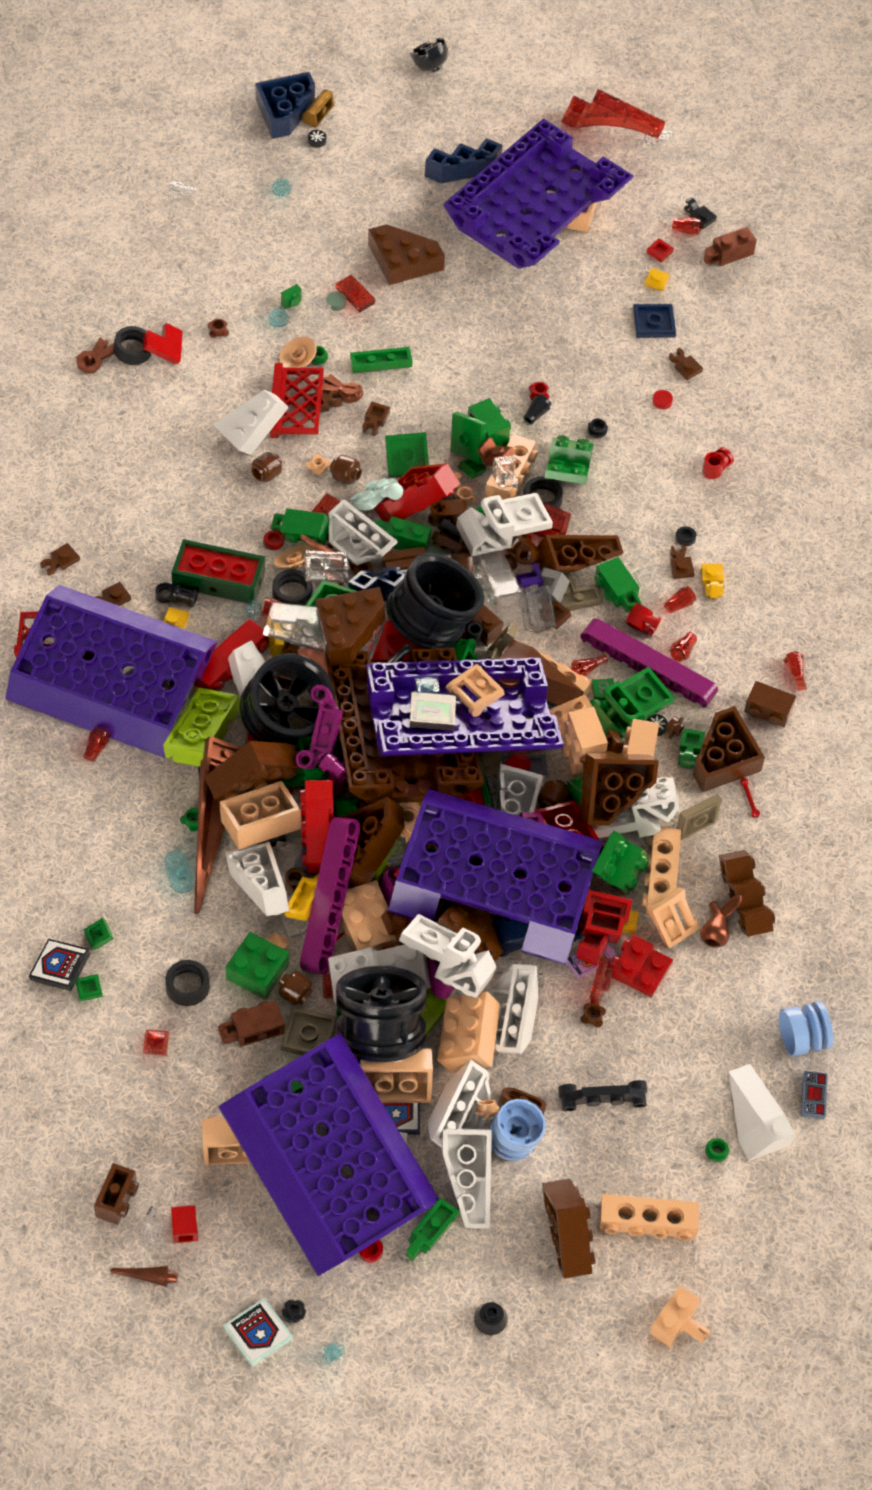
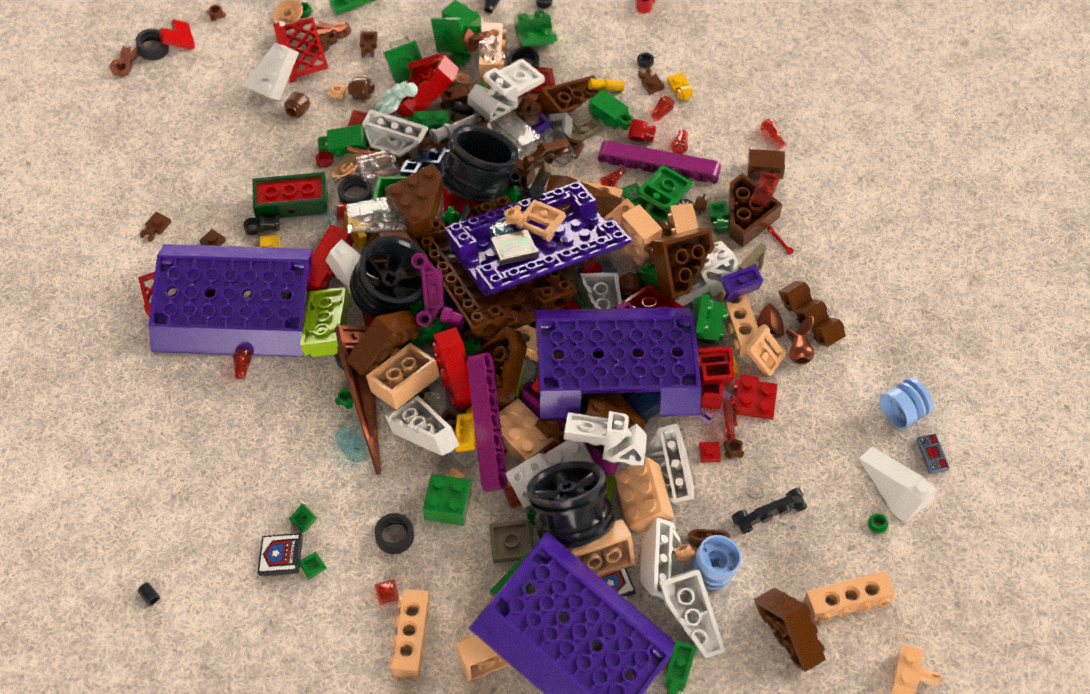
camera: 15 degrees left, 0 degrees up
(151, 1126) = (410, 665): none -> light nougat brick
(253, 1024) = (463, 549): copper brick -> none
(295, 988) = (485, 508): reddish brown head -> none
(382, 652) = (450, 216): none -> green plate
(411, 552) = (447, 129): none -> light grey pin
(424, 461) = (421, 62): none -> red tile
(446, 674) = (513, 215): none -> light nougat plate
(483, 654) = (535, 191): none -> black bar
(518, 613) = (546, 153): none -> reddish brown plate
(565, 1009) = (709, 452): none -> red plate
(626, 552) = (606, 84): none -> yellow pin
(675, 832) = (741, 282): none -> dark purple panel
(697, 886) = (772, 318): none -> copper brick
(750, 733) = (765, 189): none -> clear red plate

